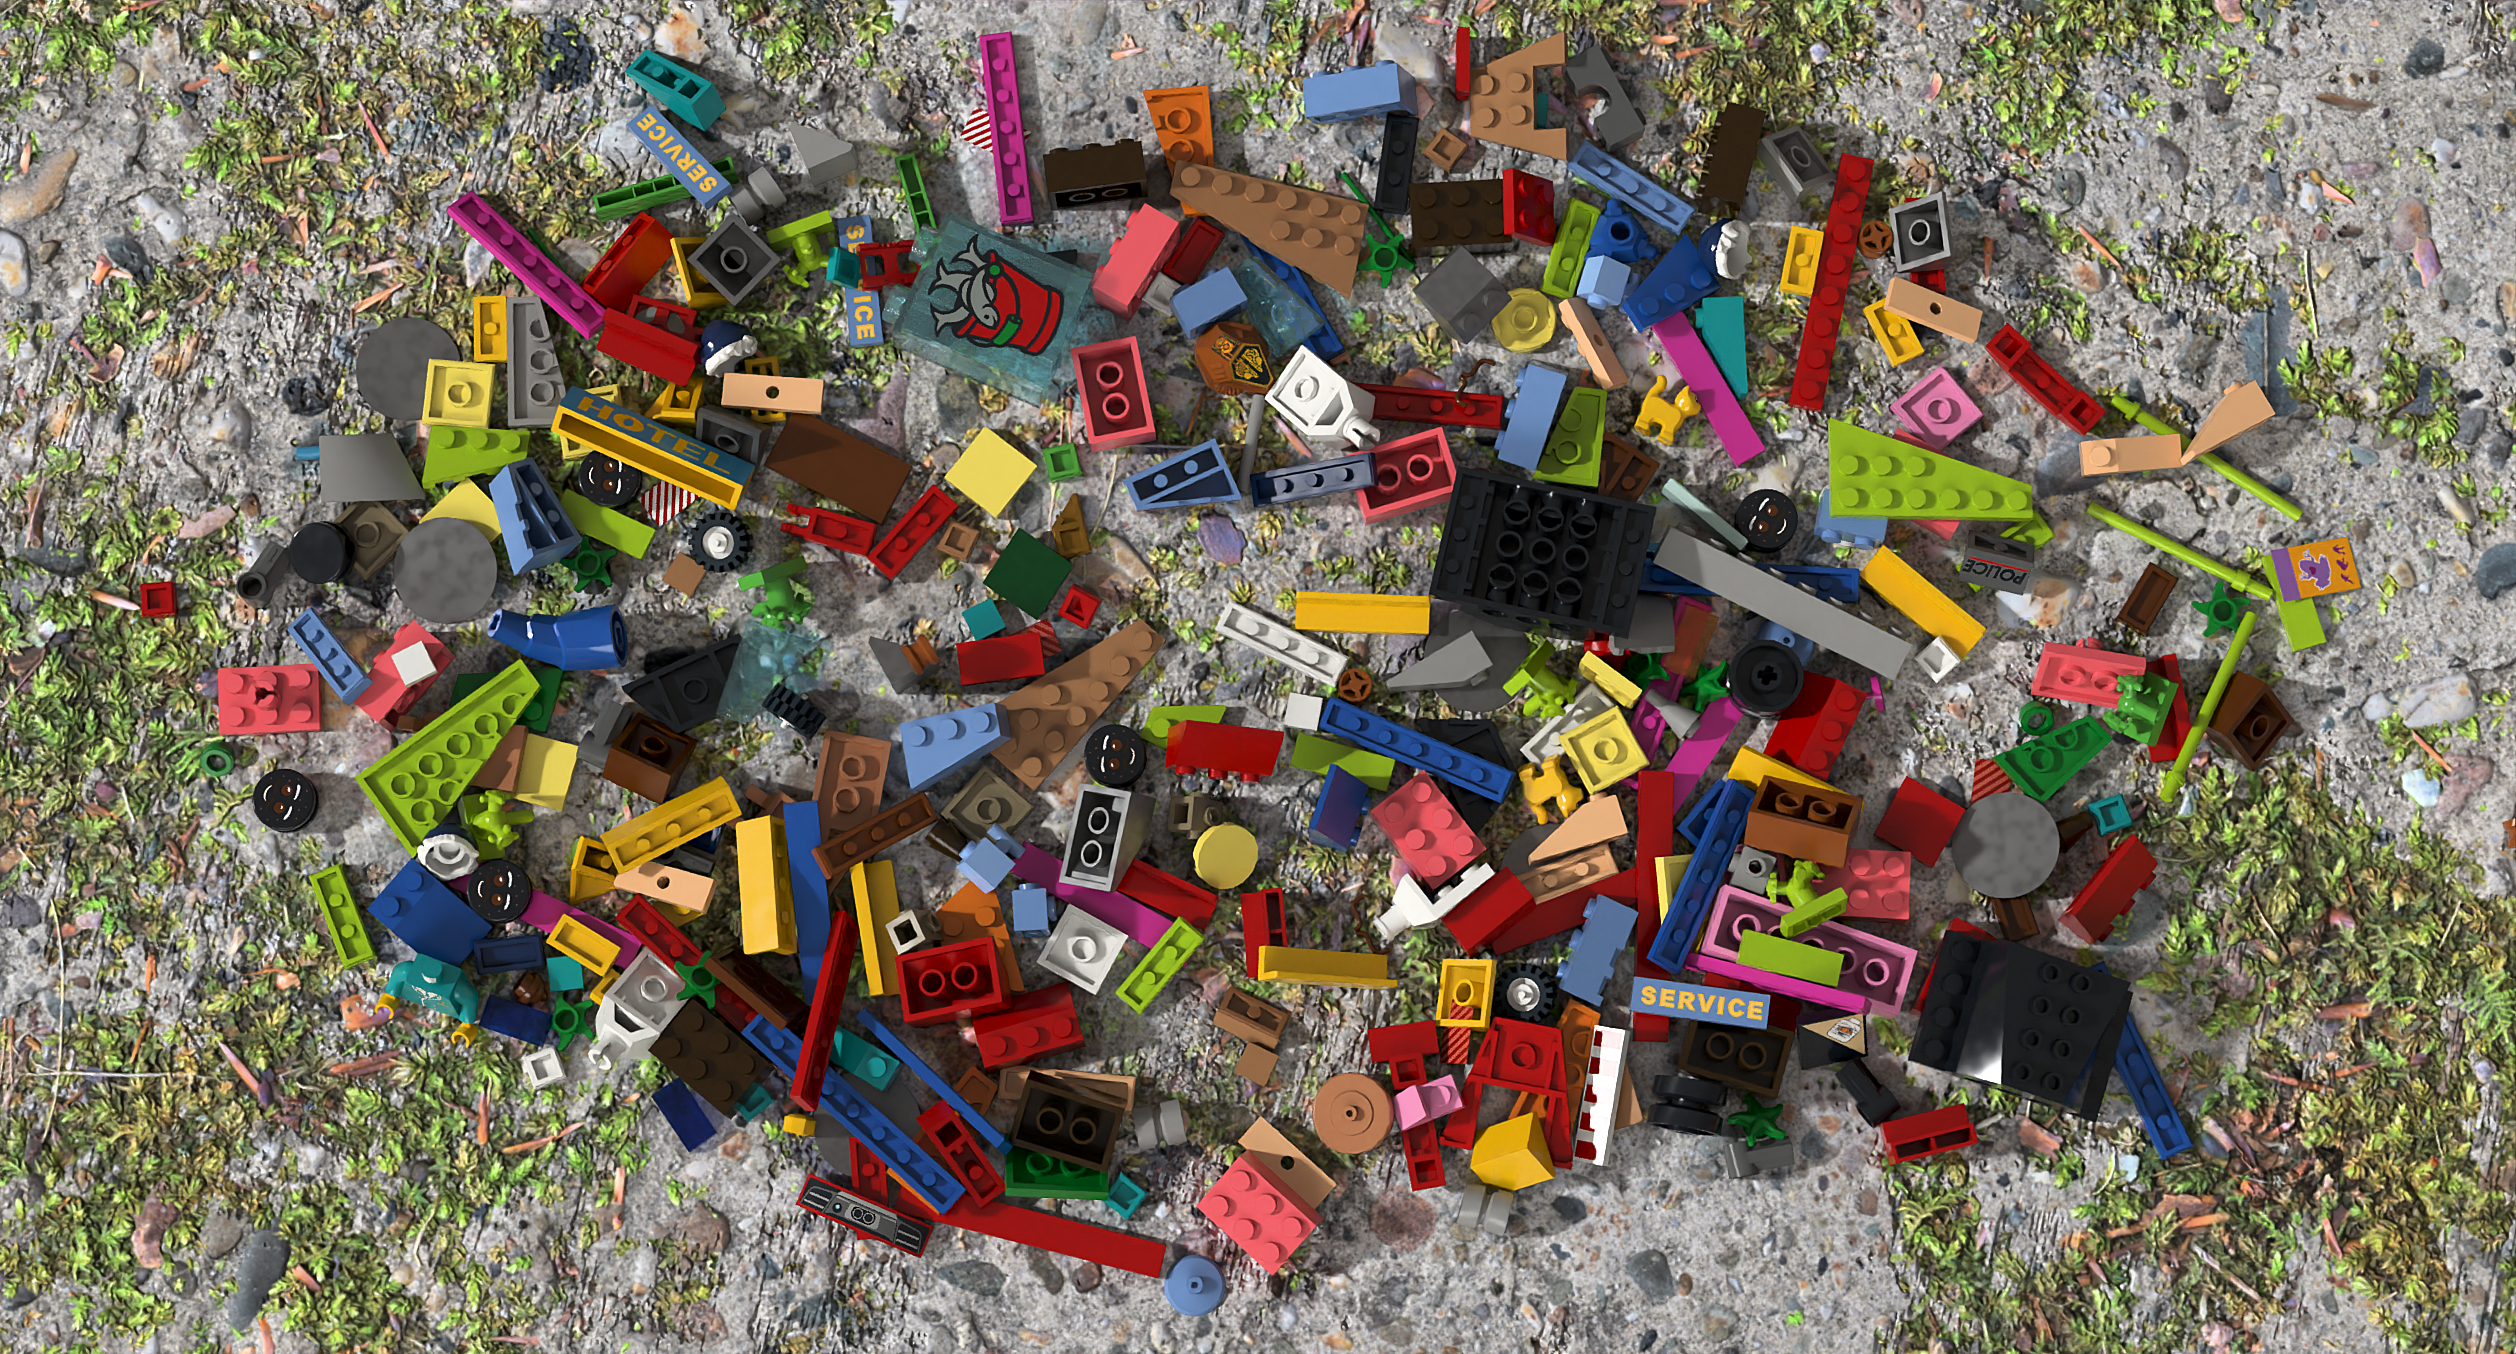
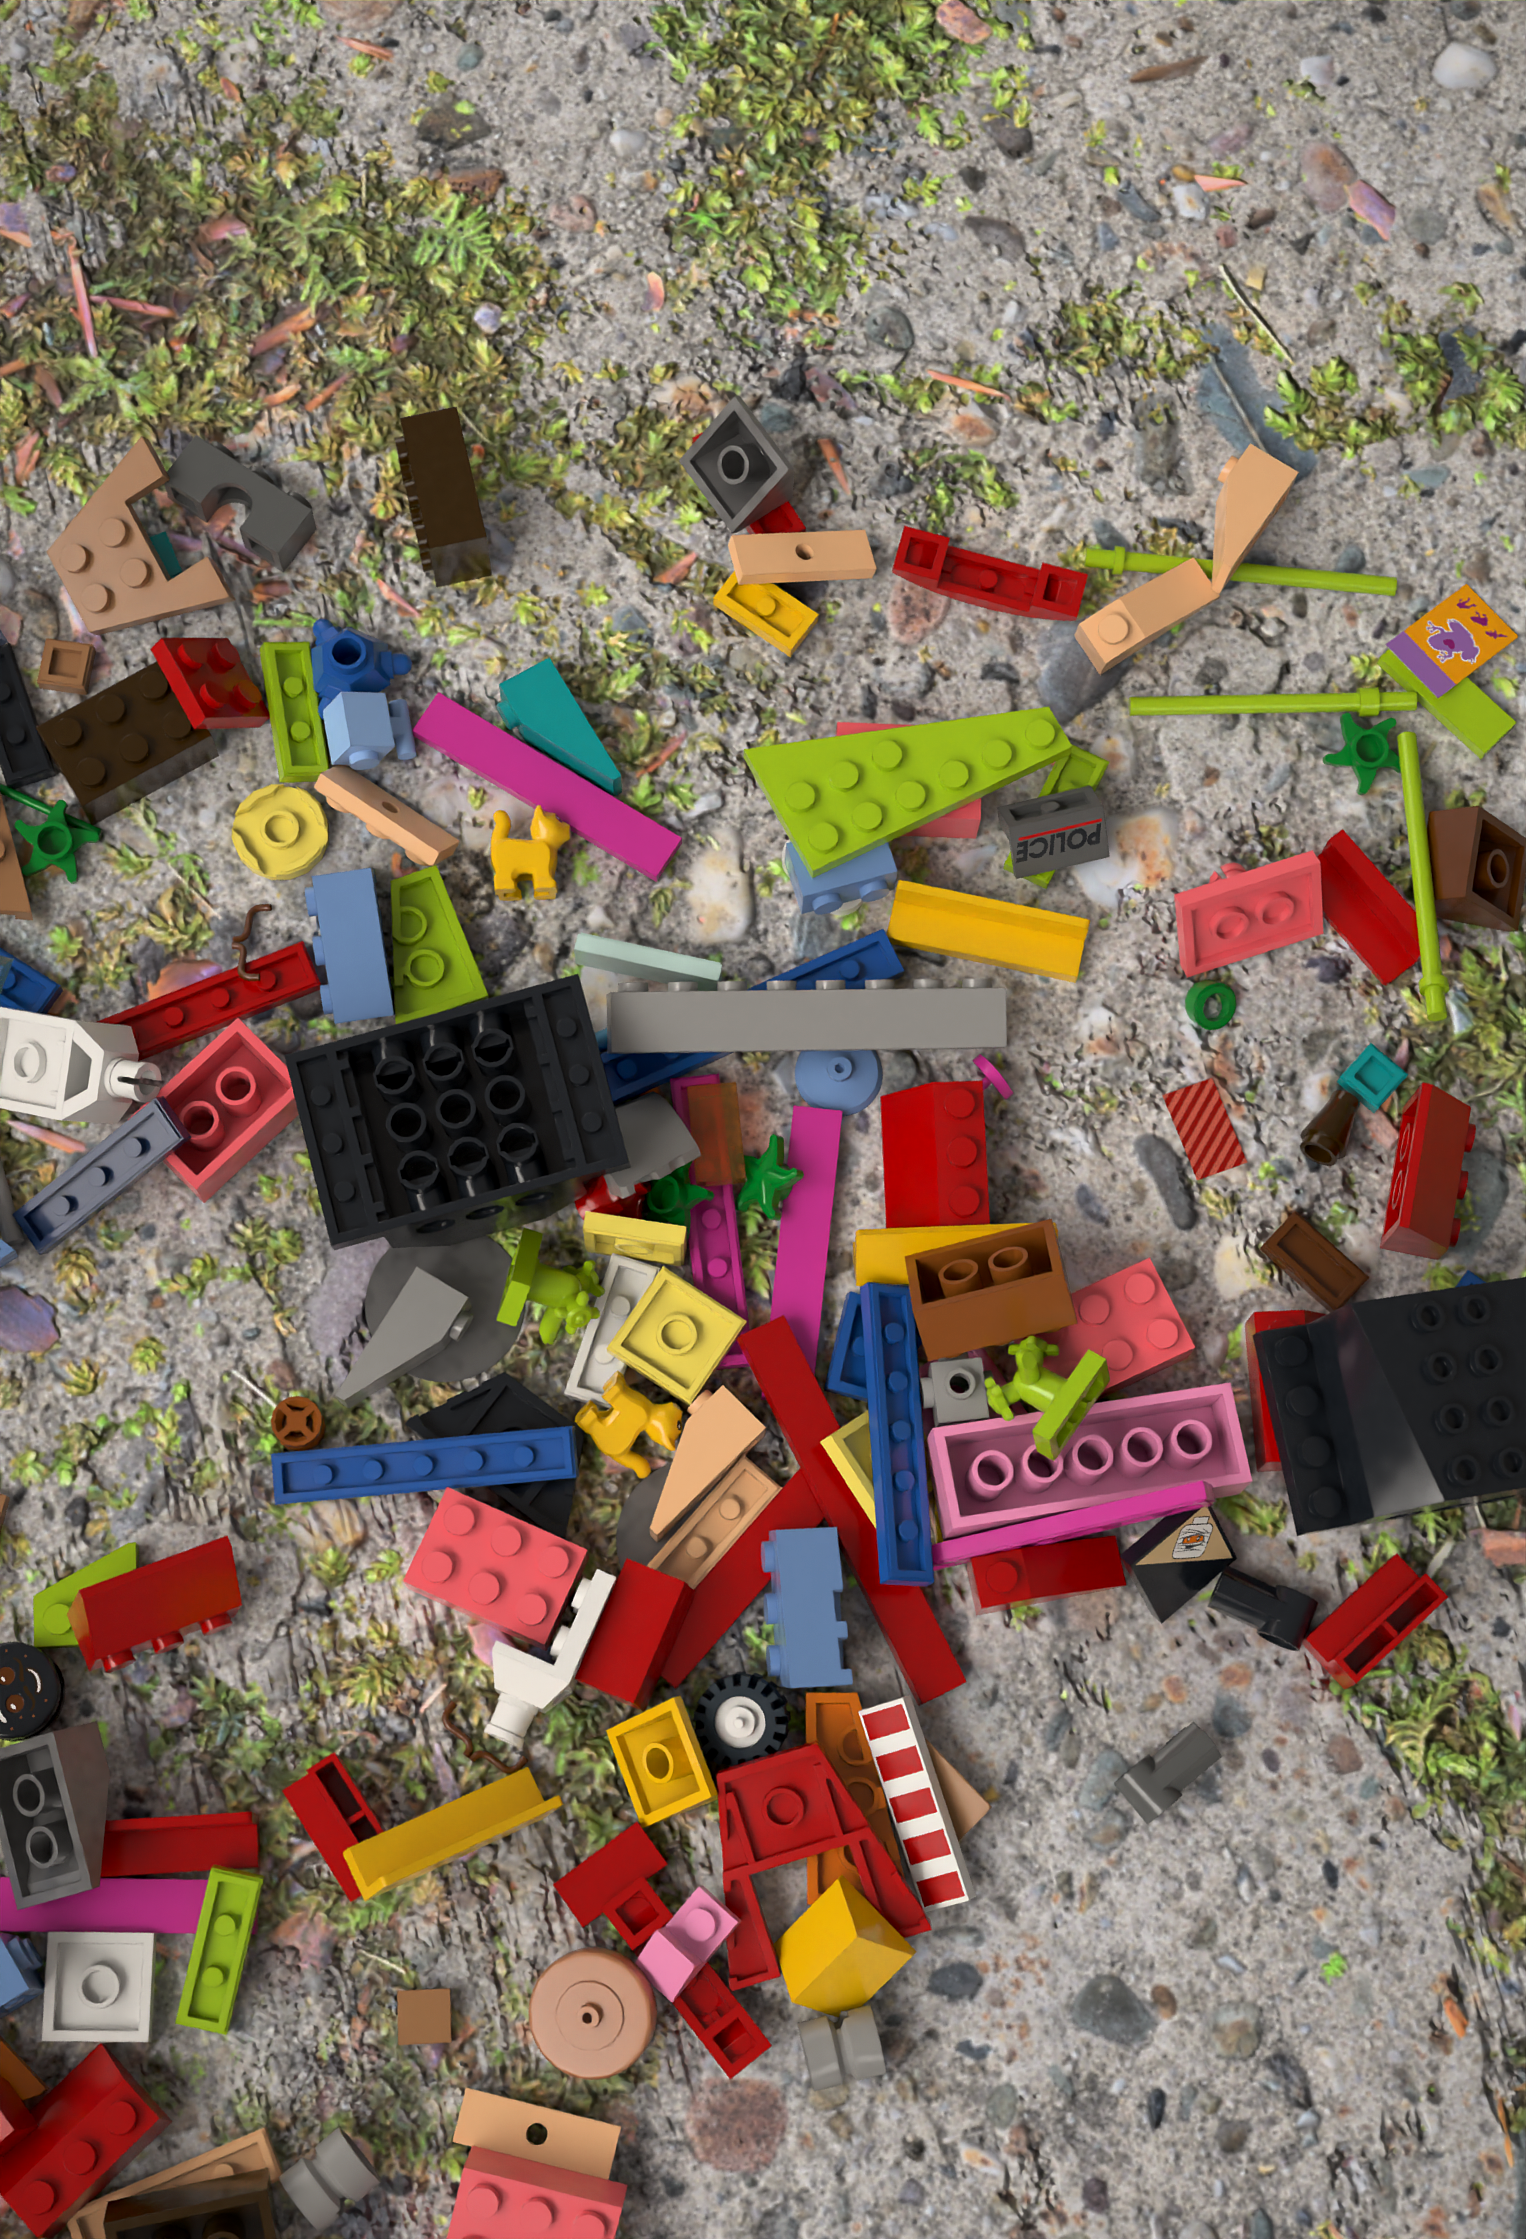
camera: 35 degrees left, 5 degrees down
(1200, 814) = (166, 1716): dark tan brick -> none
(1225, 855) = (234, 1748): light yellow tile -> none
(1251, 1019) = (385, 1956): medium nougat slope -> none
(1282, 644) = (170, 1418): white tile -> none
(1303, 712) = (245, 1495): white tile -> none
(1317, 754) = (333, 1535): lime tile -> none
(1338, 810) = (359, 1603): blue slope -> none
(1362, 613) = (258, 1321): yellow panel -> none
(1455, 1039) = (682, 1831): clear red sticker -> none
(1461, 295) = (179, 836): flat silver slope -> none
(1462, 63) = (31, 546): red tile -> none
(1623, 470) = (510, 952): reddish brown wing -> none
(1631, 188) = (335, 597): medium blue tile -> none
(1671, 287) = (451, 693): blue wing -> none
(1680, 718) = (753, 1240): light grey cone -> none
(1686, 1111) = (1038, 1749): black wheel -> none
(1699, 1003) = (983, 1606): medium blue tile -> none
(1725, 248) = (494, 610): white hair -> none
(1736, 1056) = (1063, 1647): dark brown brick -> none
(1758, 1121) = (1142, 1724): green animal -> none
(1766, 520) = (732, 927): black head -> none
(1770, 660) = (845, 1103): black wheel -> none
(1789, 958) = (1071, 1482): lime tile -> none
(1794, 163) = (527, 466): light grey slope -> none
(1801, 261) = (602, 581): yellow plate -> none
(1831, 283) = (654, 592): red plate -> none
(1877, 233) = (680, 497): dark orange wheel -> none
(1919, 822) = (1136, 1214): red tile -> none
(1937, 409) = (873, 679): bright pink tile -> none
(1938, 658) = (1046, 992): white tile -> none
(2005, 845) = (1263, 1186): flat silver sticker -> none
(2052, 759) = (1261, 1044): green wing -> none
(2145, 709) = (1339, 917): bright green piece -> none
(2147, 599) = (1265, 783): reddish brown tile -> none

